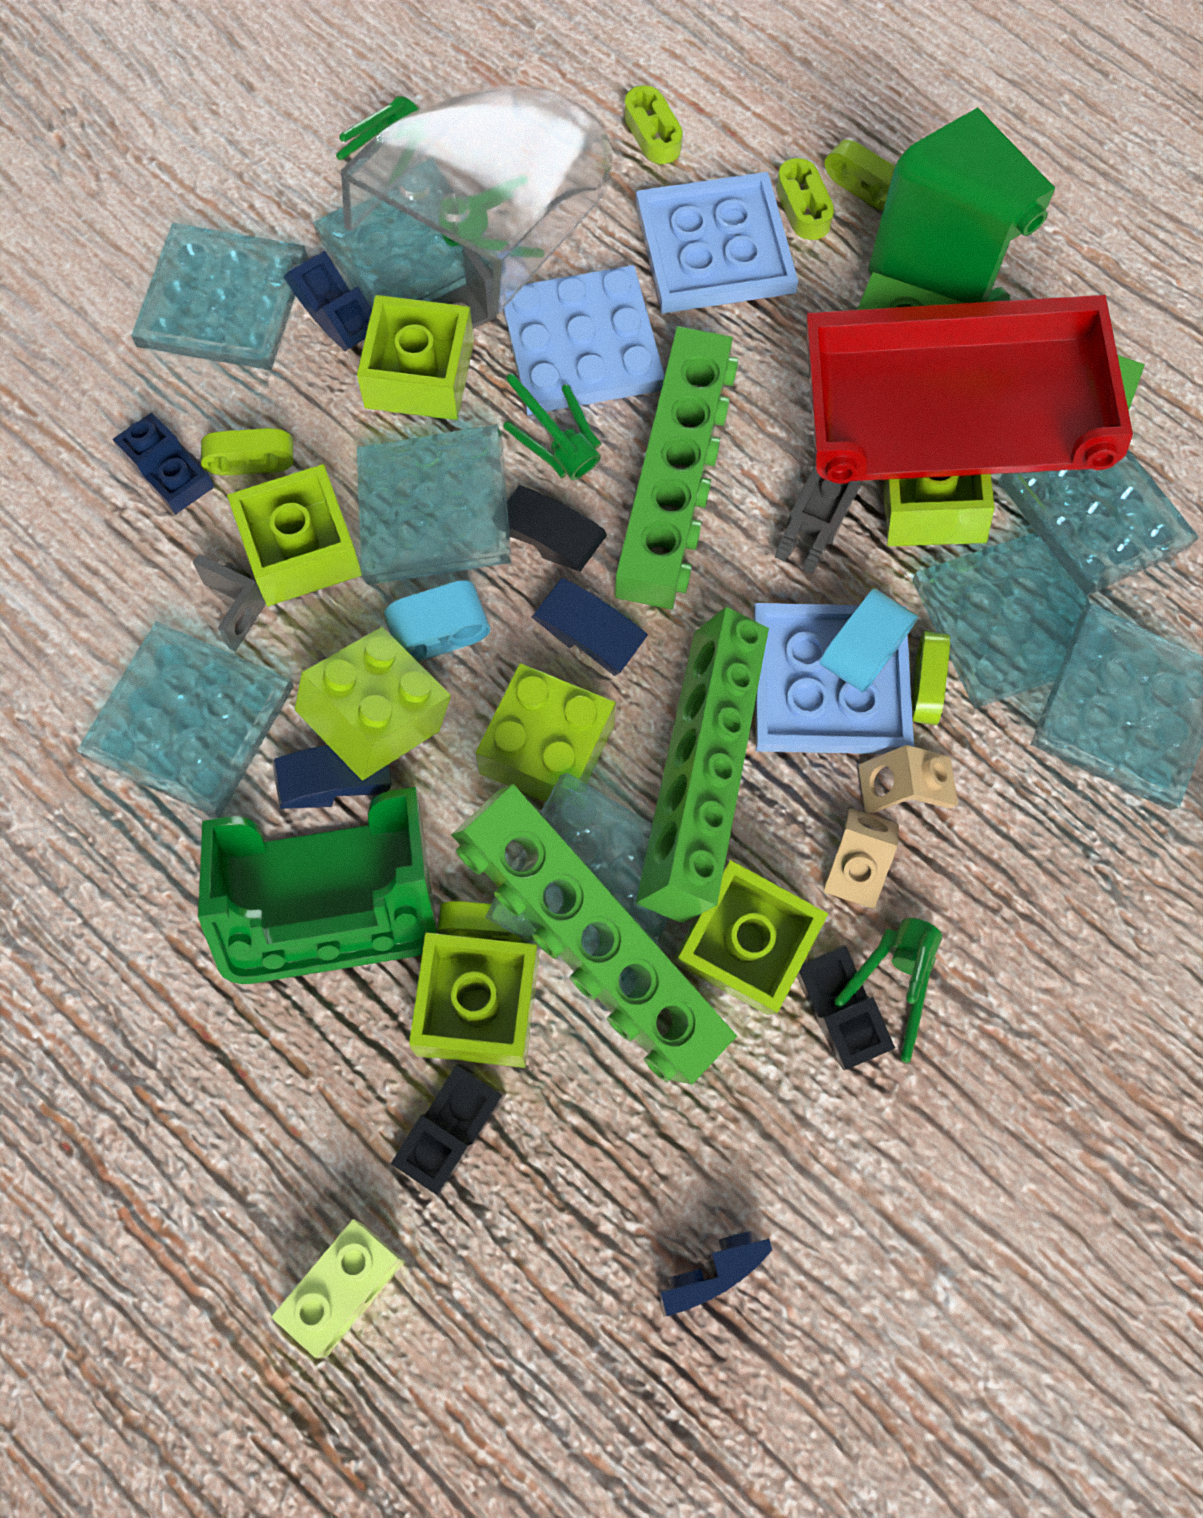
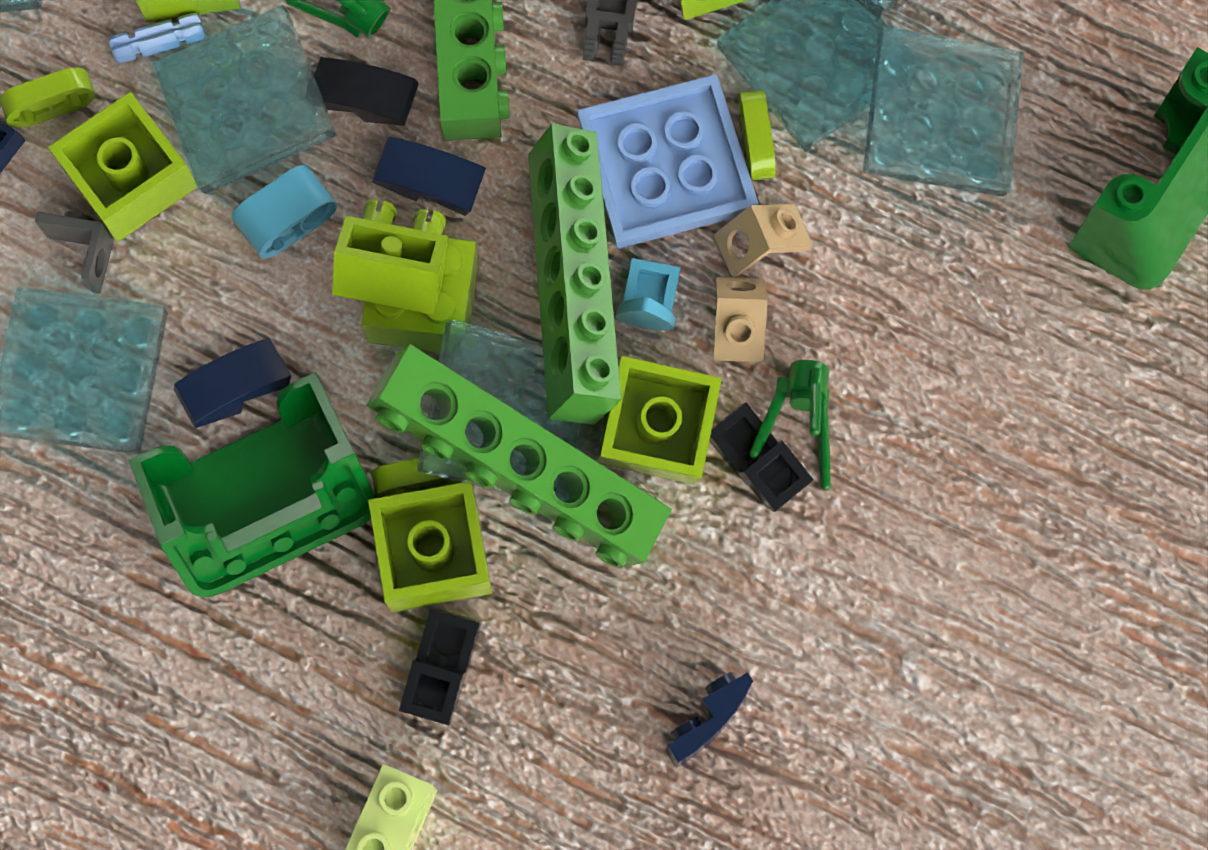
camera: 15 degrees left, 5 degrees up
(369, 425) = (156, 37): none -> light blue axle
(371, 702) = (249, 305): lime brick -> none
(522, 697) = (390, 261): none -> lime brick
(776, 807) = (649, 296): none -> medium azure tile
(868, 640) = (691, 117): medium azure beam -> none

